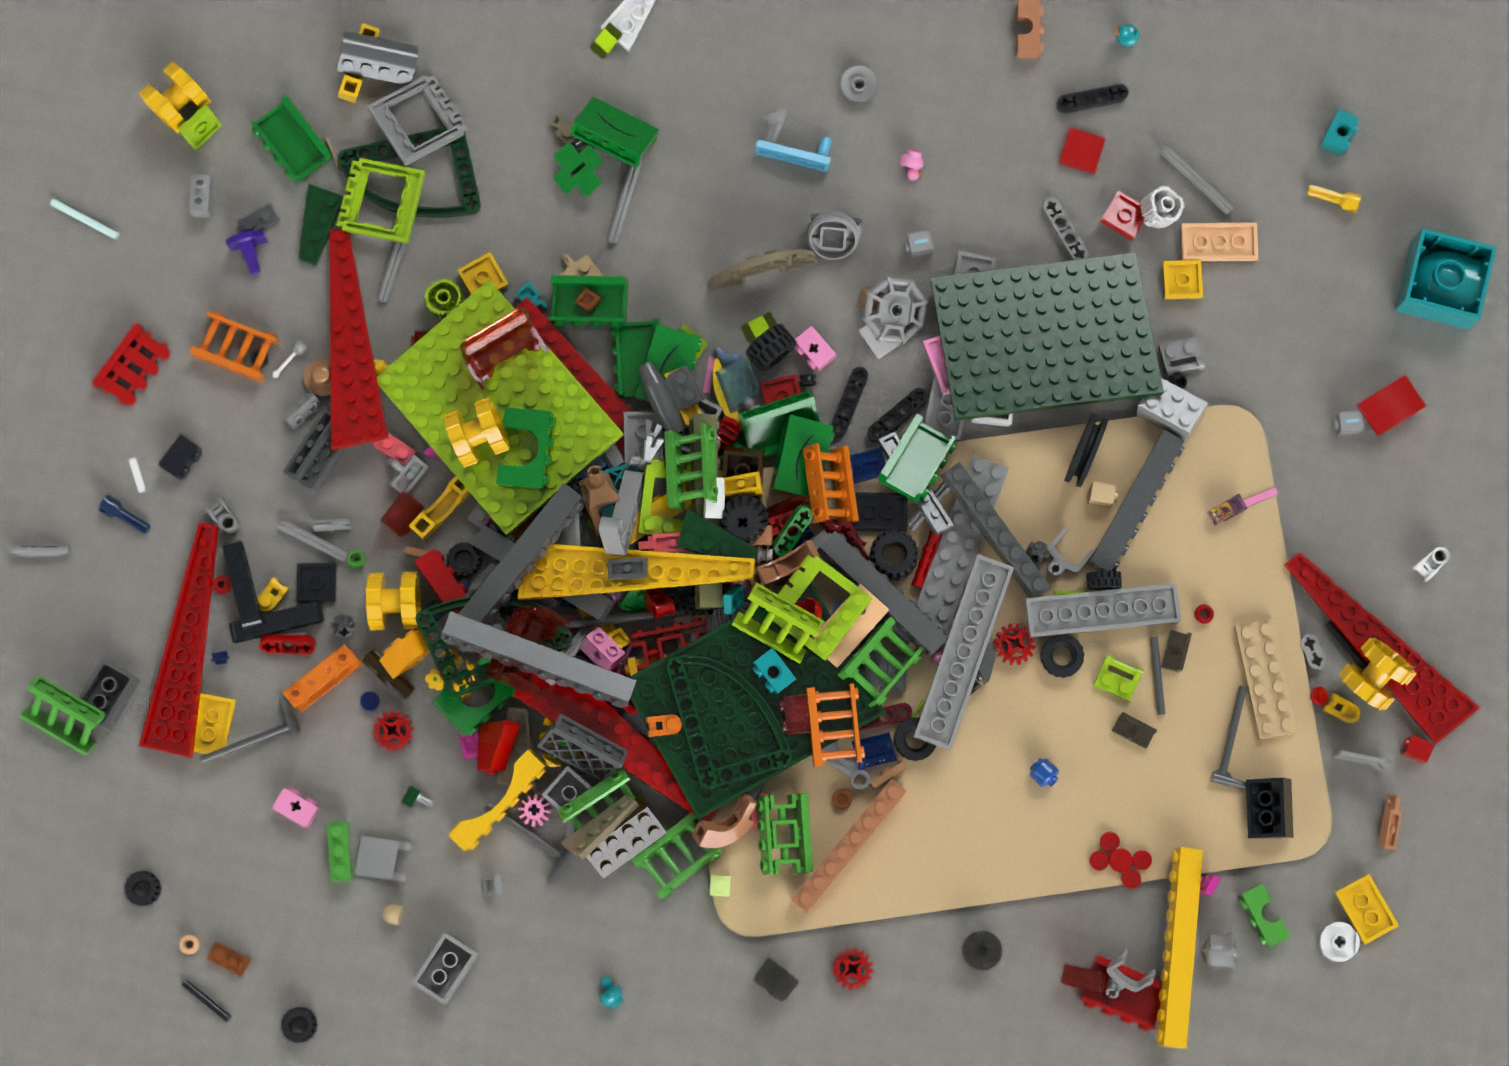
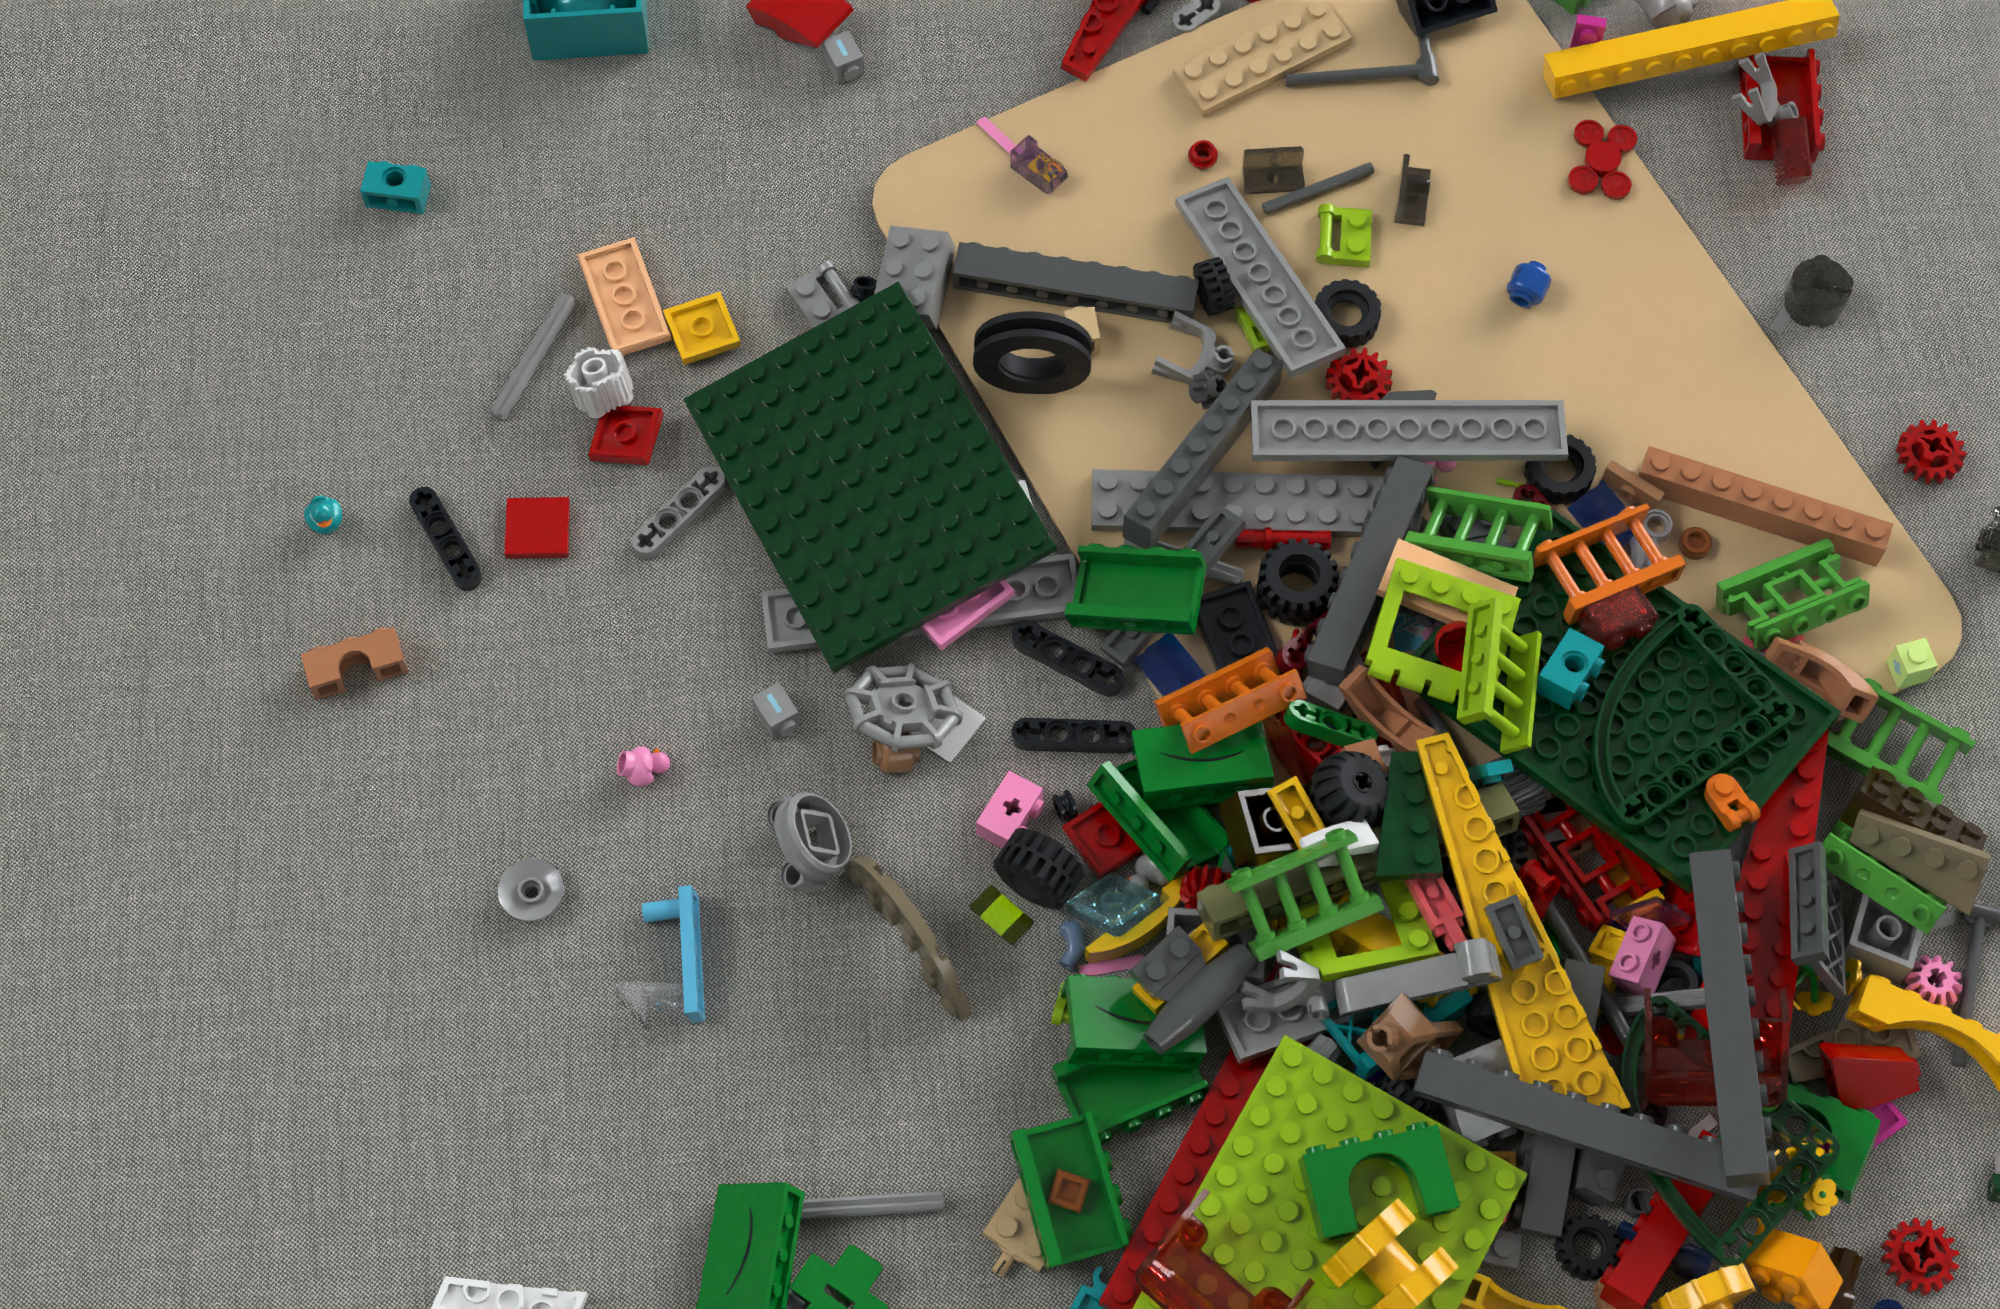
camera: 110 degrees left, 15 degrees down
(1348, 201) = (502, 149): yellow piece -> none

